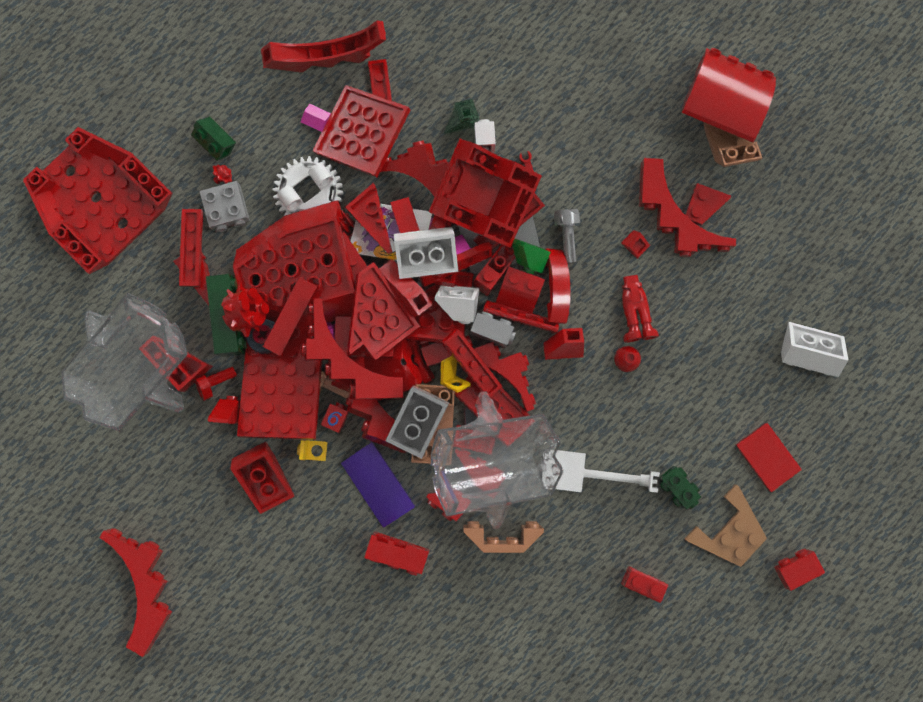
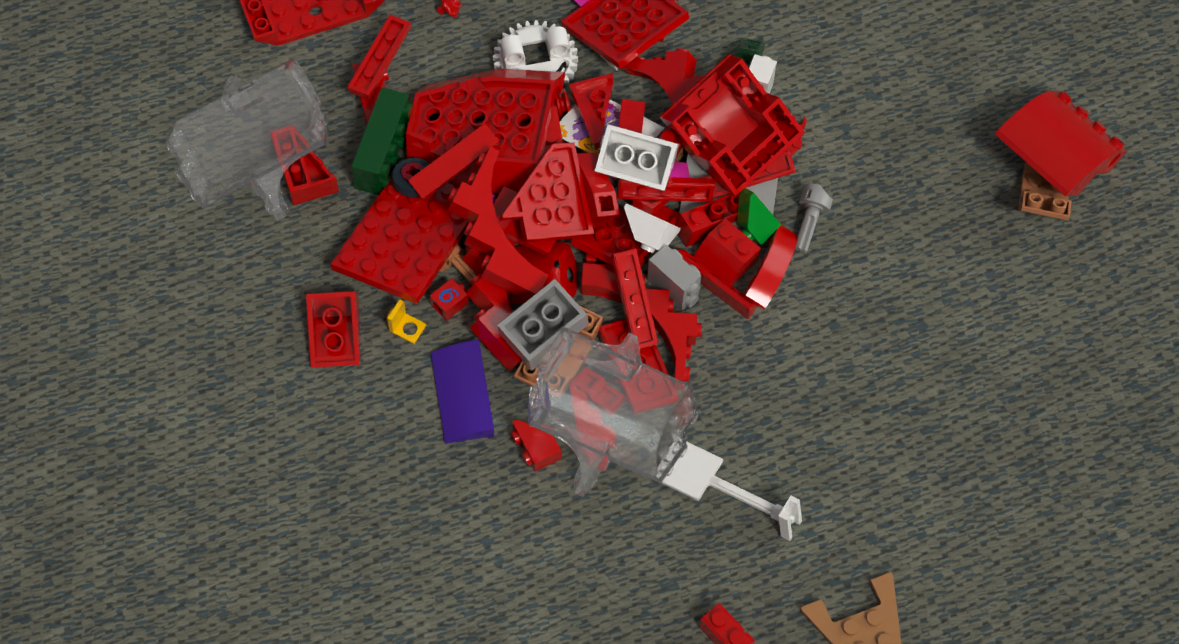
camera: 25 degrees right, 20 degrees down
(148, 586) = (147, 387): red arch -> none
(205, 383) = (321, 201): red piece -> none
(224, 206) = (436, 36): light grey brick -> none
(226, 411) = (329, 238): red slope -> none
(244, 310) = (408, 133): red brick -> none
(396, 553) = (446, 470): red wedge -> none
(425, 371) = (575, 276): red piece -> none
(448, 375) = (604, 299): yellow bracket -> none
(529, 534) = (586, 516): nougat slope -> none
(565, 344) = (753, 330): red slope -> none
(627, 358) = (821, 380): red brick -> none
(635, 243) = (886, 263): red slope -> none
(635, 299) = (858, 318): red piece -> none
(670, 218) = (939, 250): red arch -> none
(683, 492) = (819, 544): dark green brick -> none
(705, 203) = (987, 252): red wing -> none
(768, 457) = (944, 559): red tile -> none
(814, 349) = (1050, 460): white slope -> none

